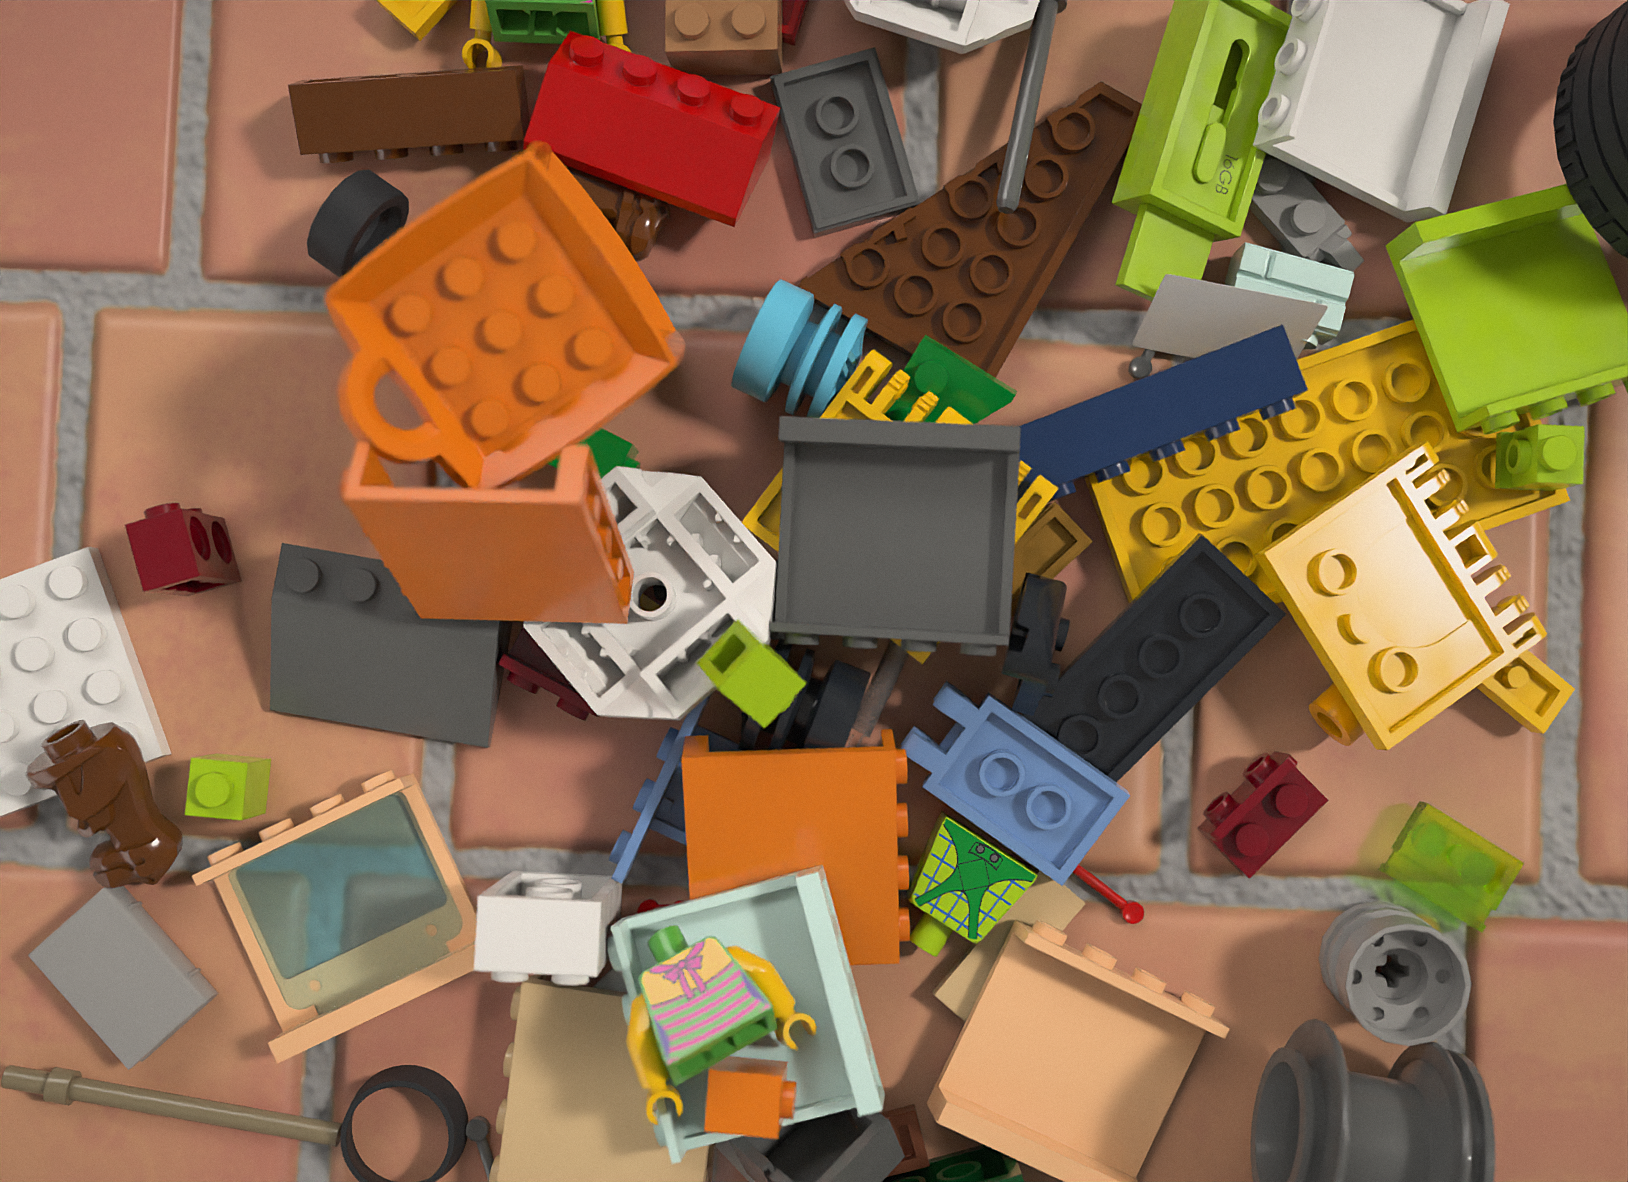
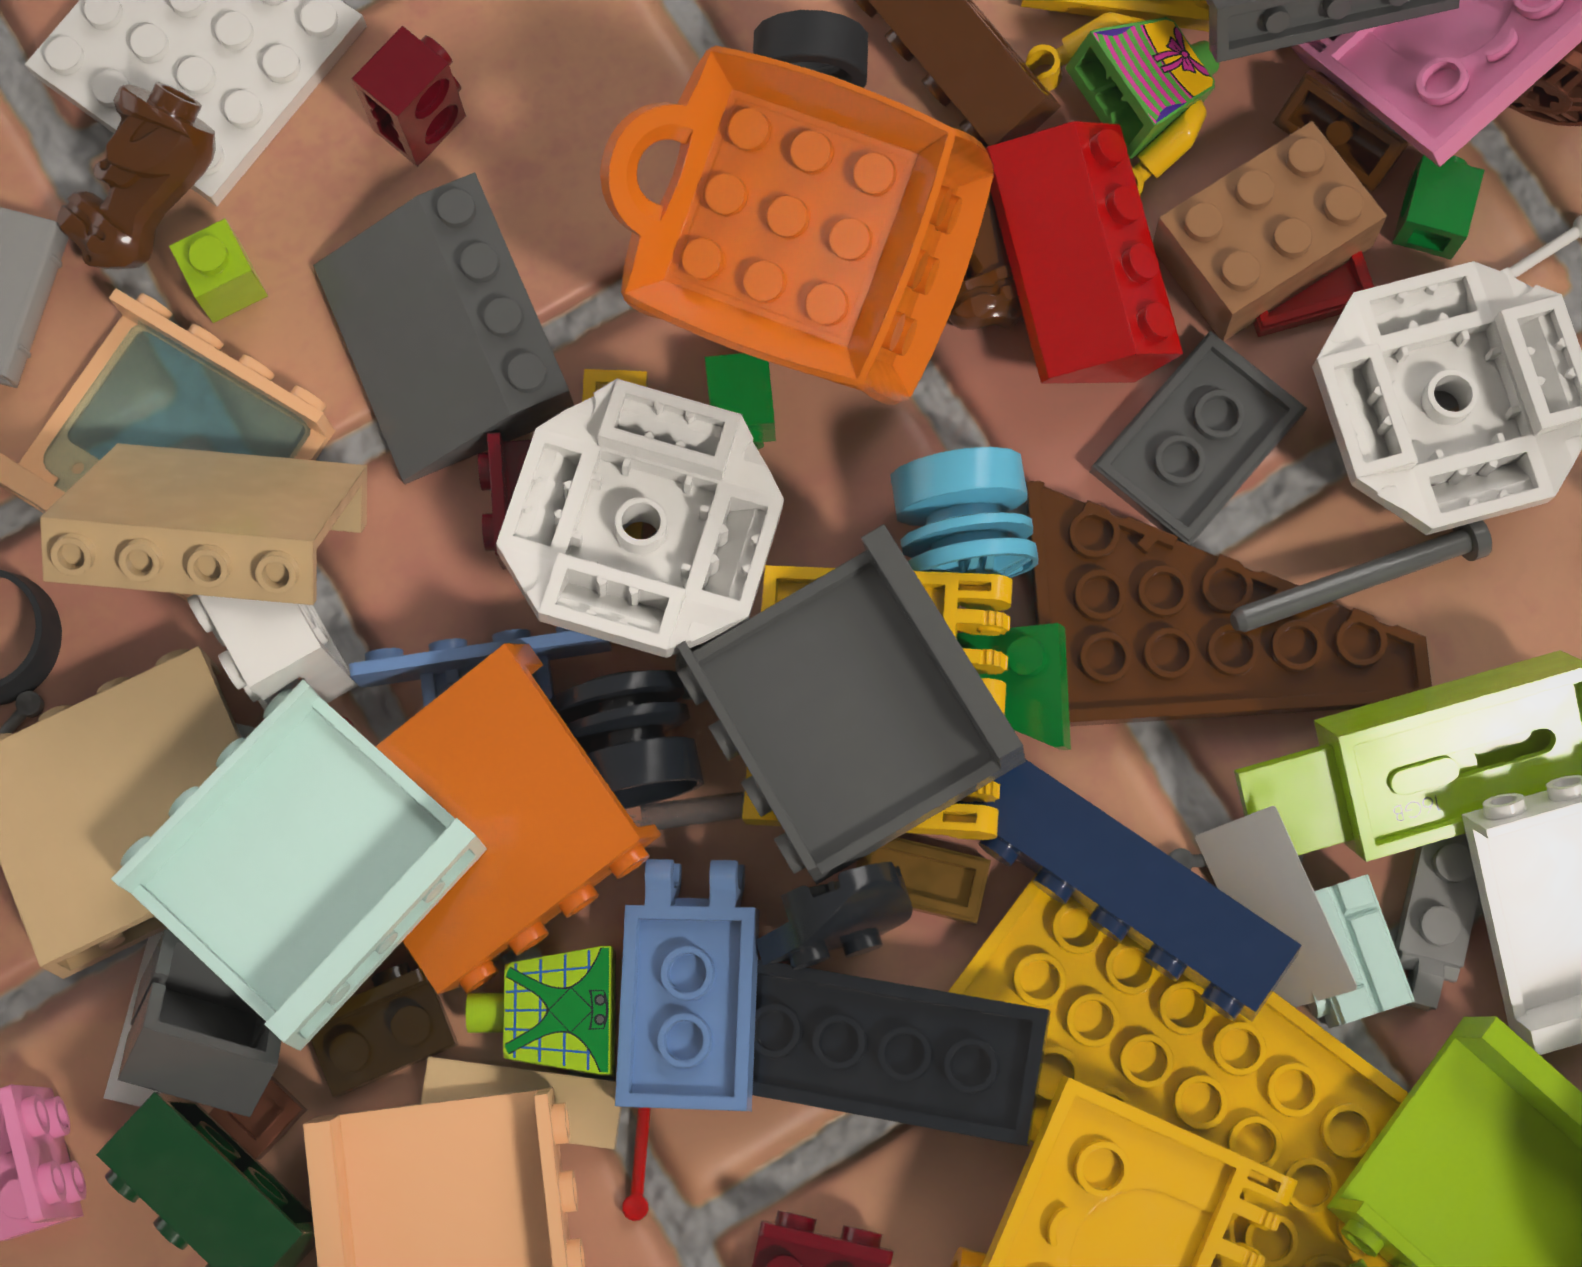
camera: 60 degrees right, 10 degrees down
(434, 929) = (201, 523): none -> tan panel
(498, 549) = (590, 348): orange panel -> none
(701, 1009) = (277, 809): torso -> none
(749, 1097) = (219, 909): orange brick -> none
(751, 673) = (623, 650): lime brick -> none
(897, 1014) = (383, 1030): none -> dark brown bracket

